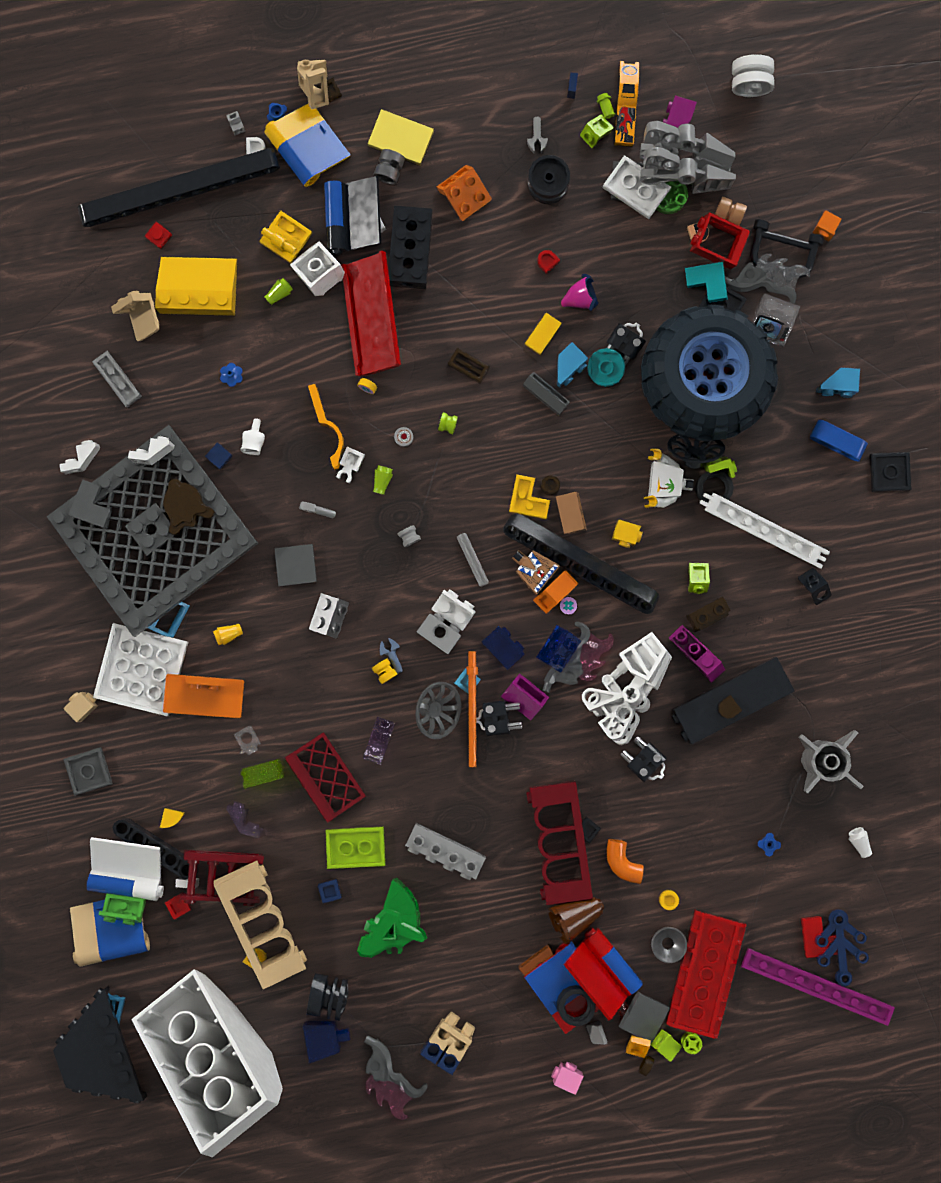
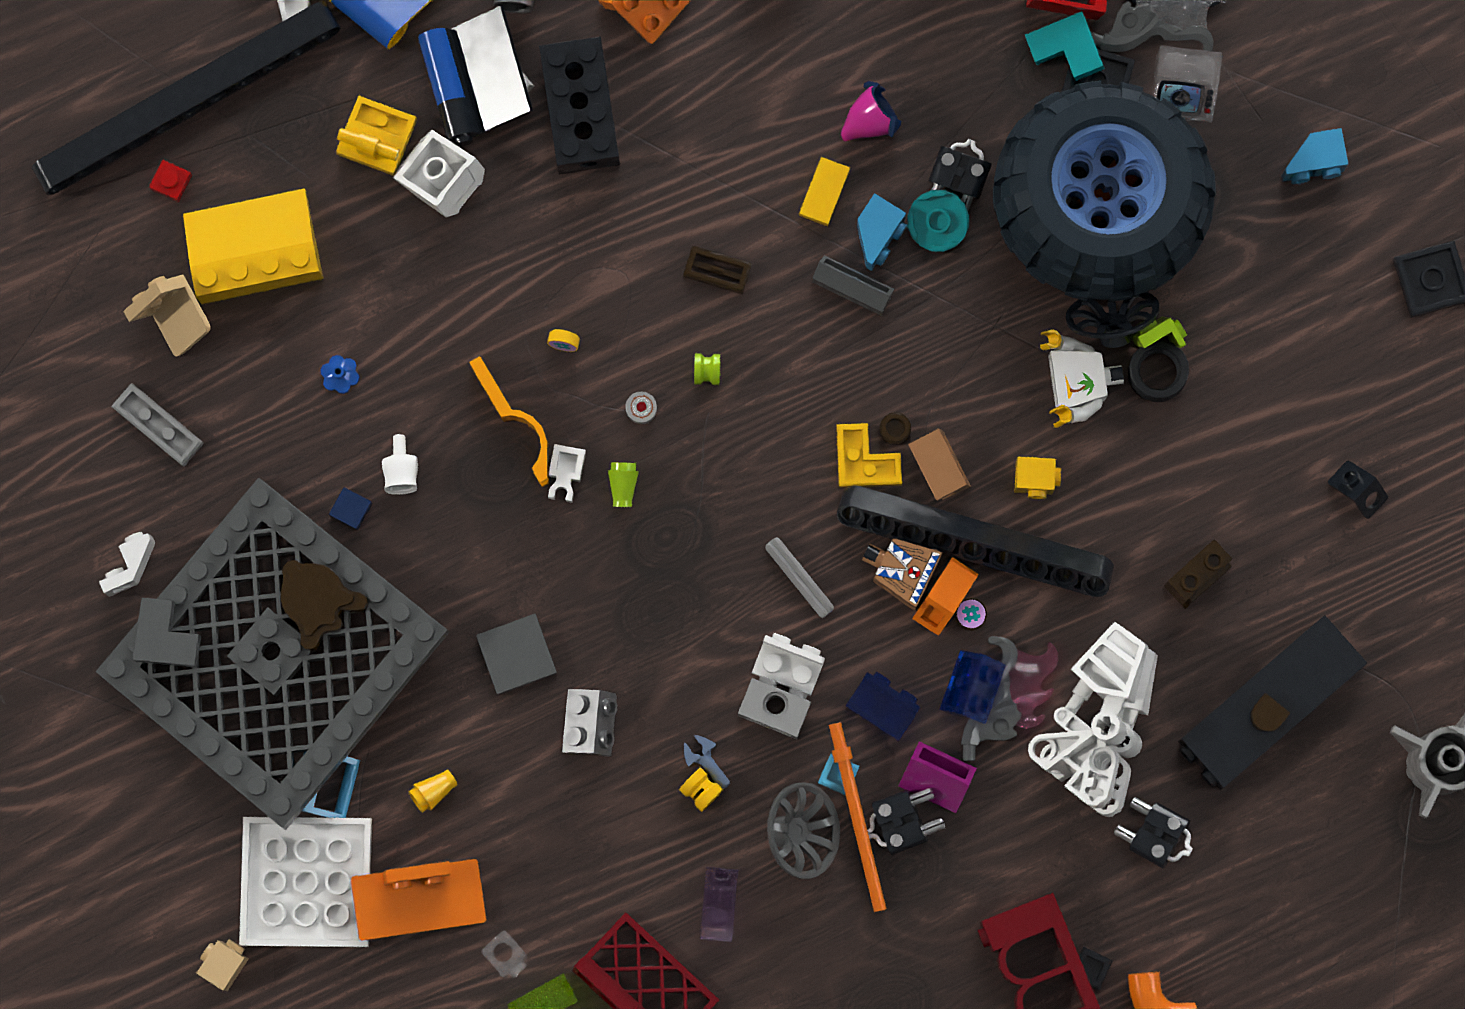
camera: 10 degrees left, 5 degrees down
(157, 449) = (252, 519): white slope -> none
(278, 291) = (385, 224): lime cone -> none
(312, 508) = (521, 555): light grey bar -> none
(371, 315) = (543, 227): red ladder -> none
(409, 536) = (688, 563): light grey wheel -> none
(547, 260) = (803, 74): red tile -> none
(697, 653) = (1197, 641): magenta slope -> none
(698, 578) = (1169, 520): lime bracket -> none
(764, 529) = (1254, 417): white hinge -> none
(764, 844) = (1380, 920): blue plate -> none
(838, 440) = (1337, 248): blue beam -> none

